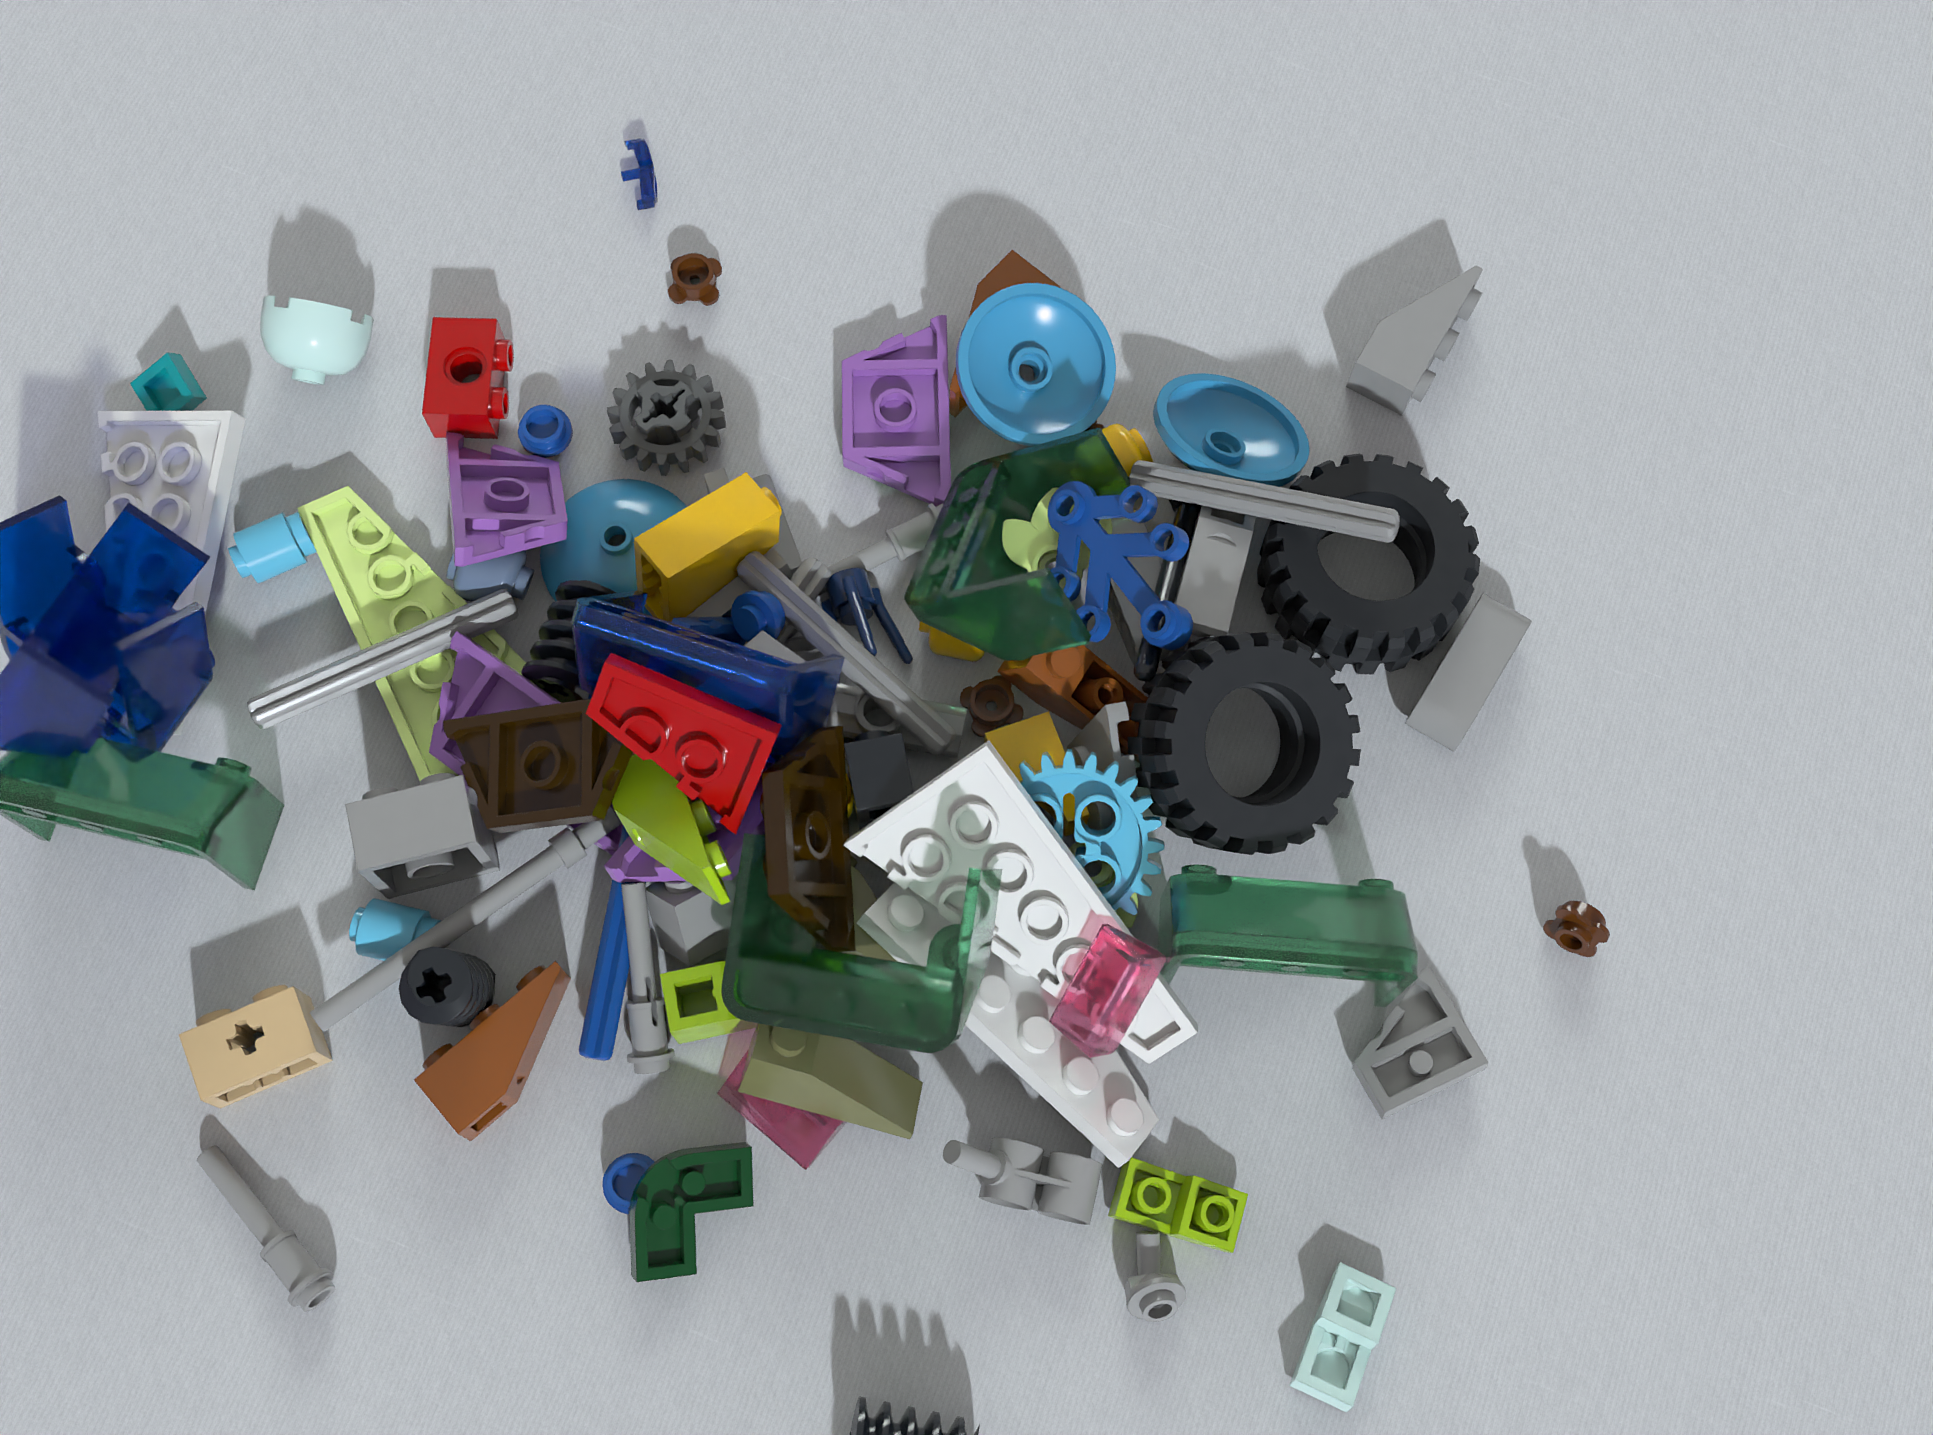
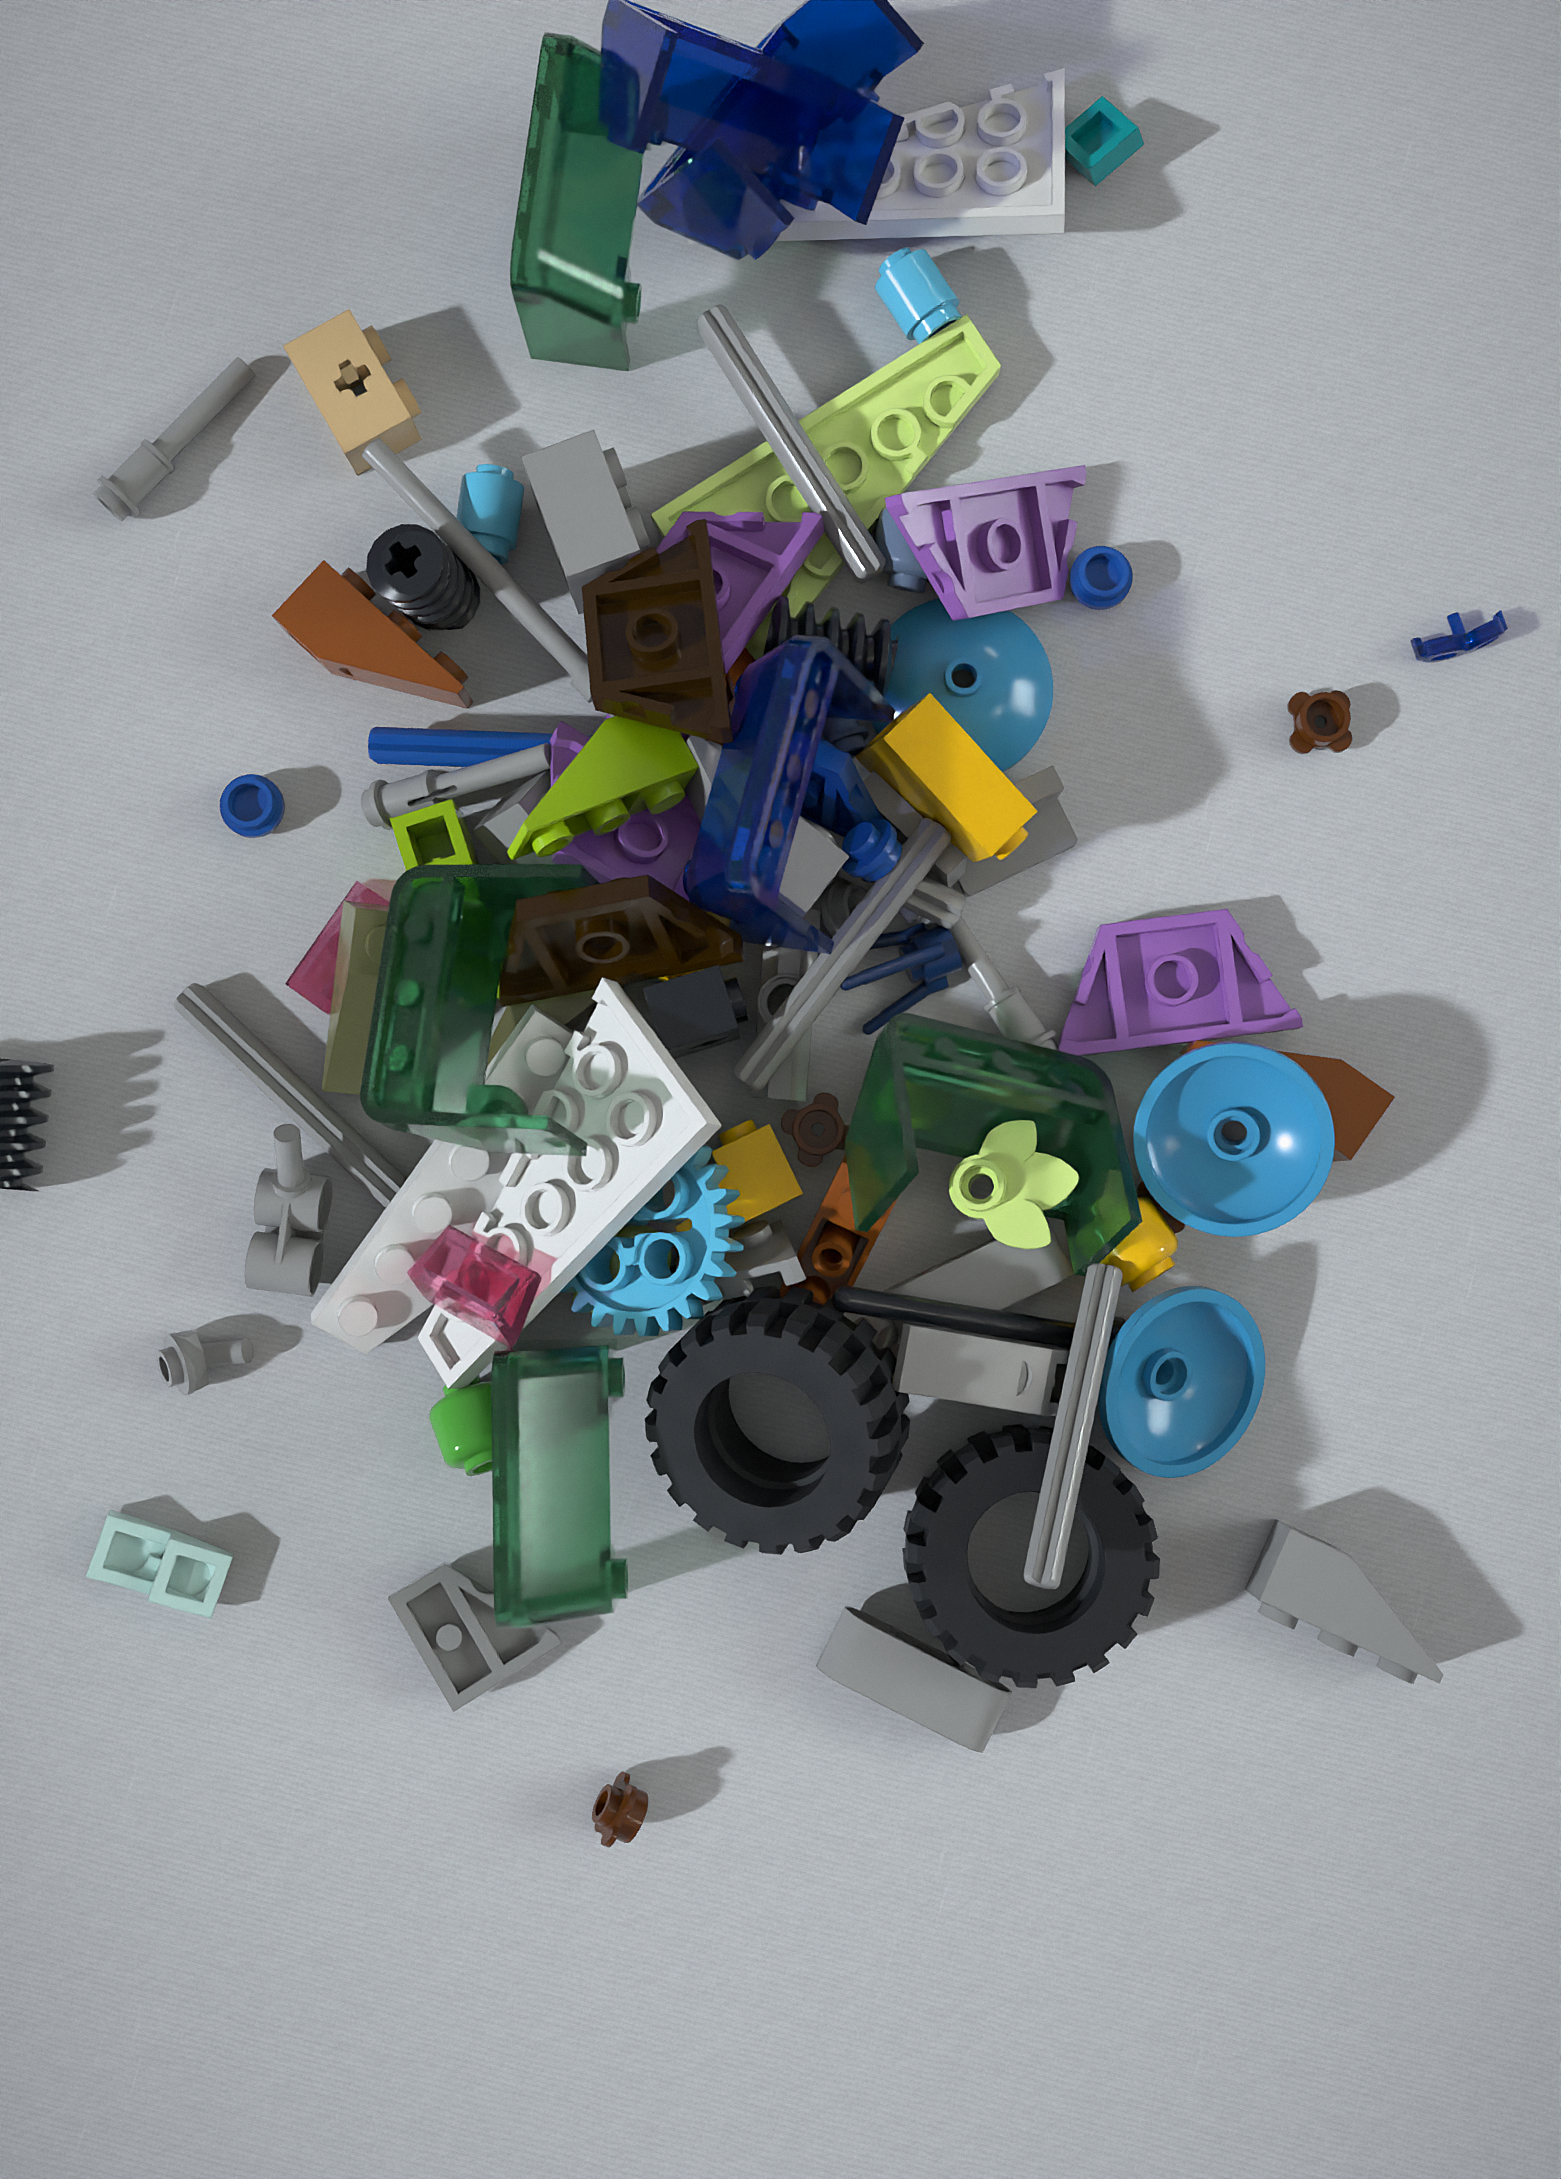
camera: 85 degrees right, 15 degrees up
(314, 338) = (1181, 290): light aqua cylinder -> none
(459, 350) = (1183, 453): red brick -> none
(665, 423) = (1147, 731): dark grey gear -> none
(672, 1194) = (239, 850): dark green plate -> none
(693, 736) = (680, 795): red wing -> none
(909, 1171) = (290, 1093): none -> light grey axle
(1110, 560) = (974, 1248): blue plant -> none
(1178, 1205) = (280, 1382): lime slope -> none
(1232, 1021) = (465, 1427): none -> bright green head

